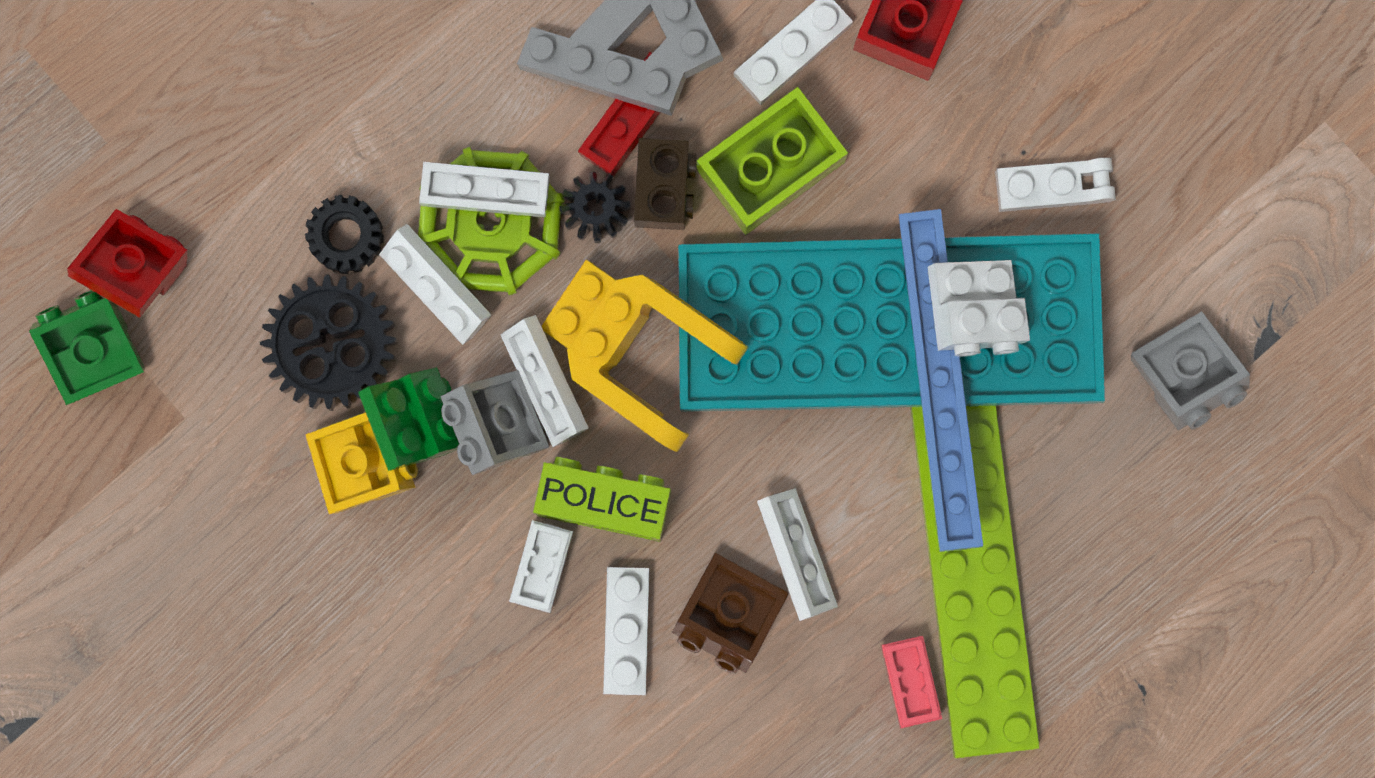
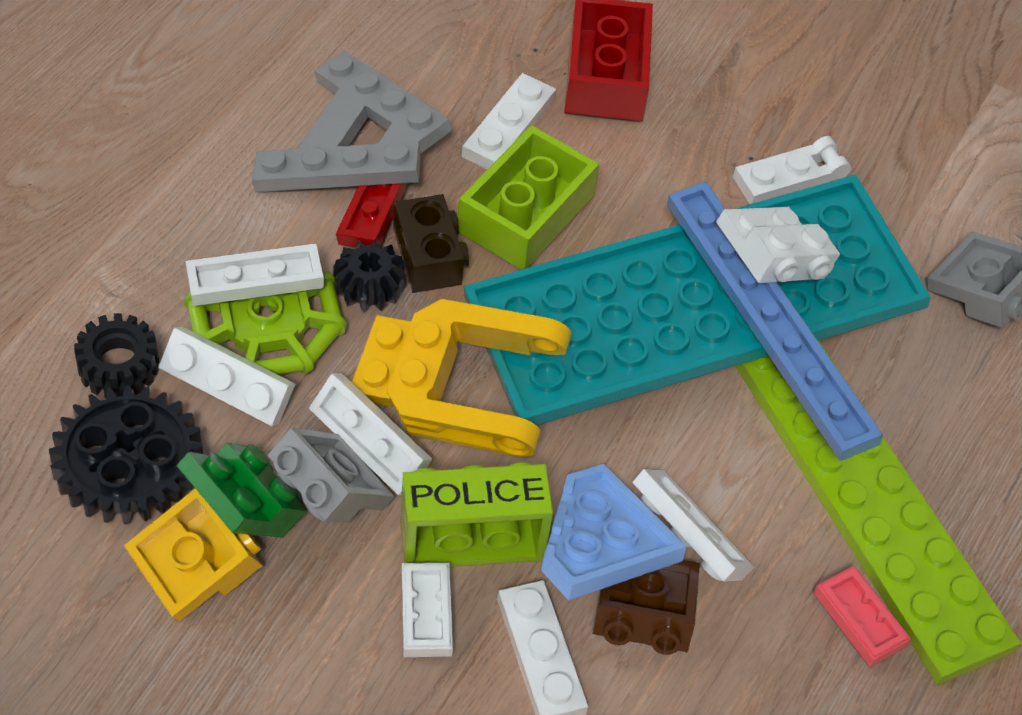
camera: 25 degrees left, 30 degrees down
(709, 550) = (604, 535): none -> light blue plate

